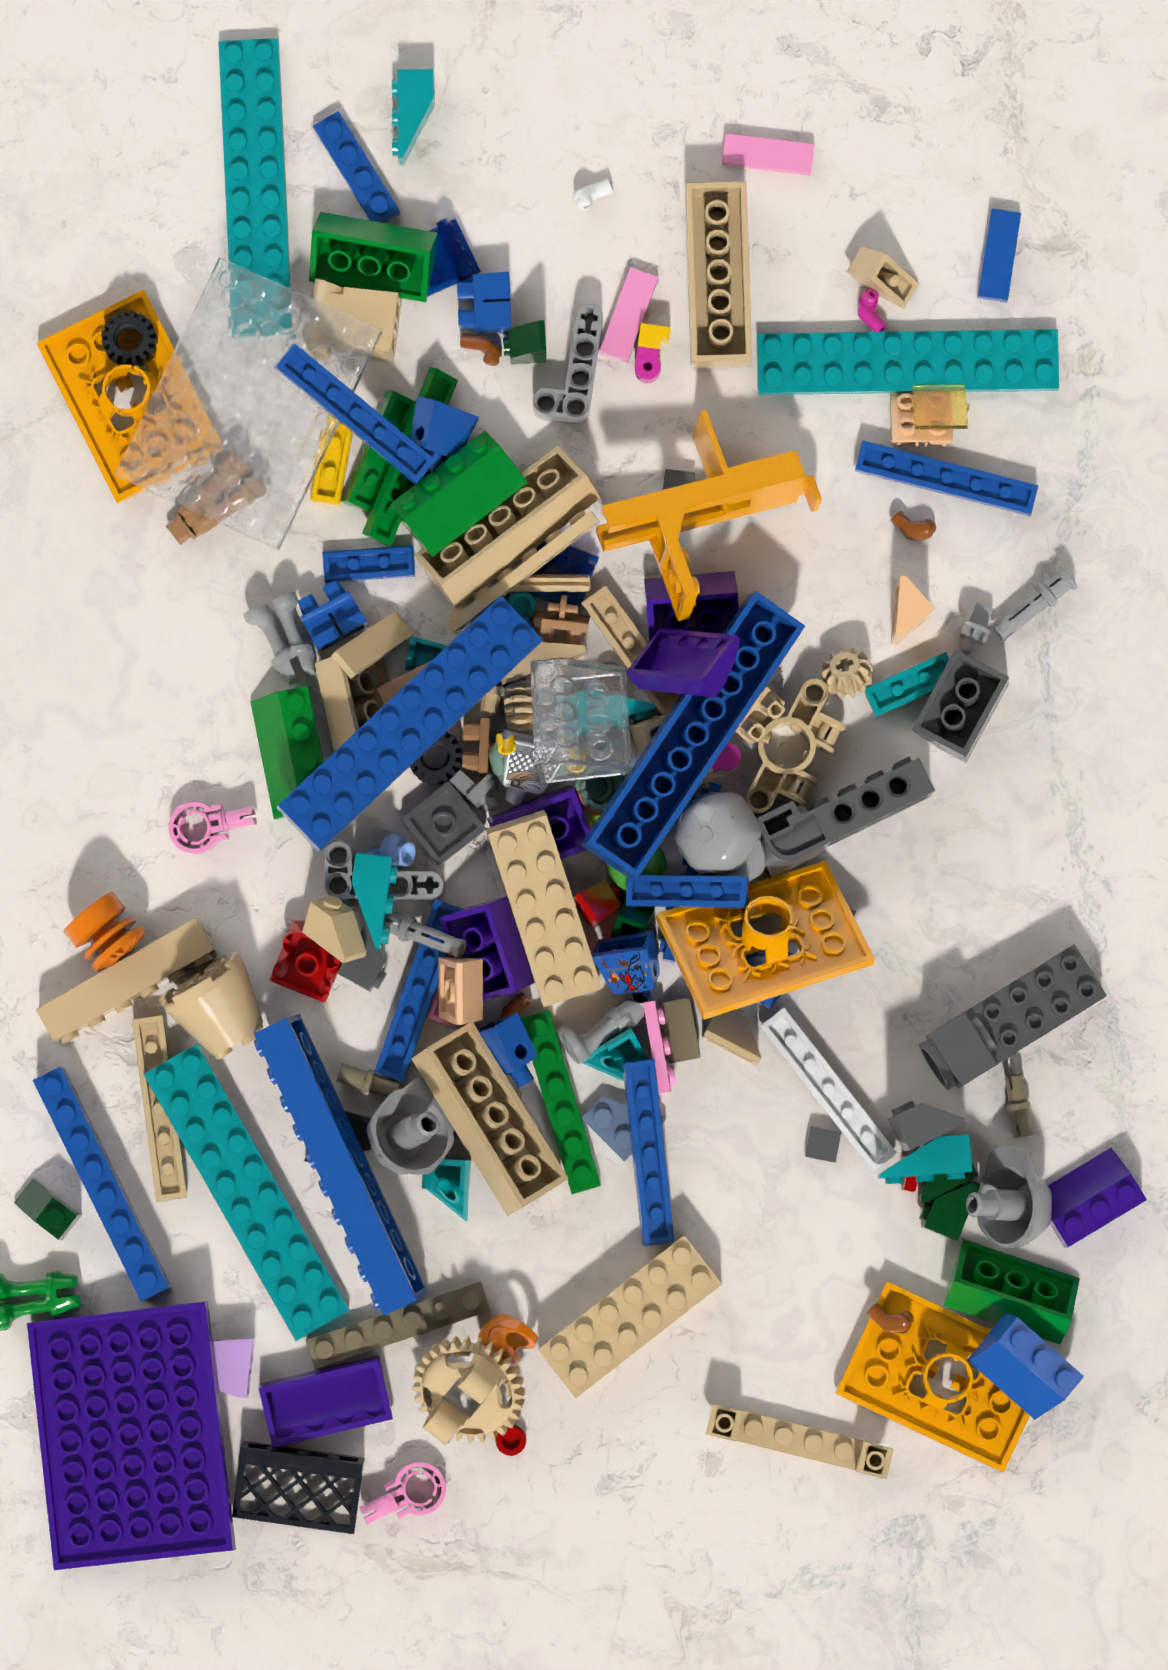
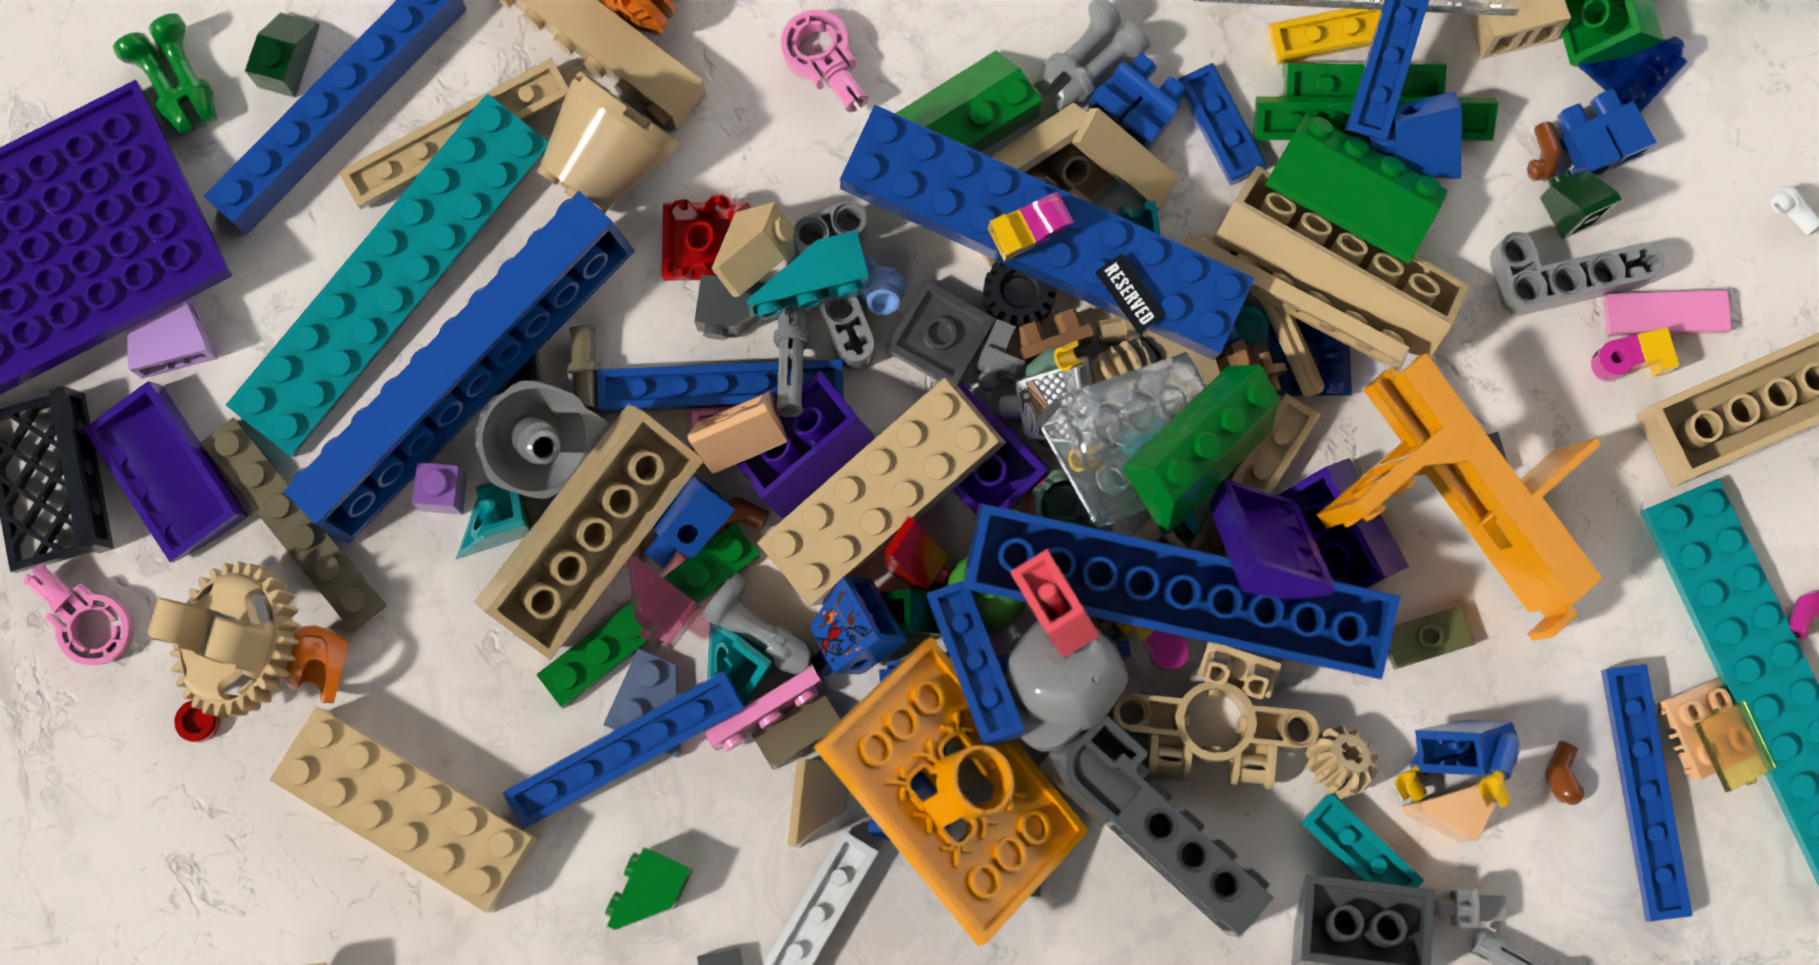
camera: 65 degrees right, 5 degrees down
(408, 734) = (1029, 225): none -> leg
(415, 1212) = (439, 488): none -> medium lavender brick
(479, 684) = (1130, 293): none -> black sticker
(561, 1090) = (659, 606): none -> clear pink slope
(599, 677) = (1203, 443): none -> green slope
(672, 822) = (1054, 604): none -> coral slope
(750, 1170) = (652, 888): none -> green slope
(786, 577) = (1429, 637): none -> olive plate
(871, 588) = (1464, 749): none -> blue torso

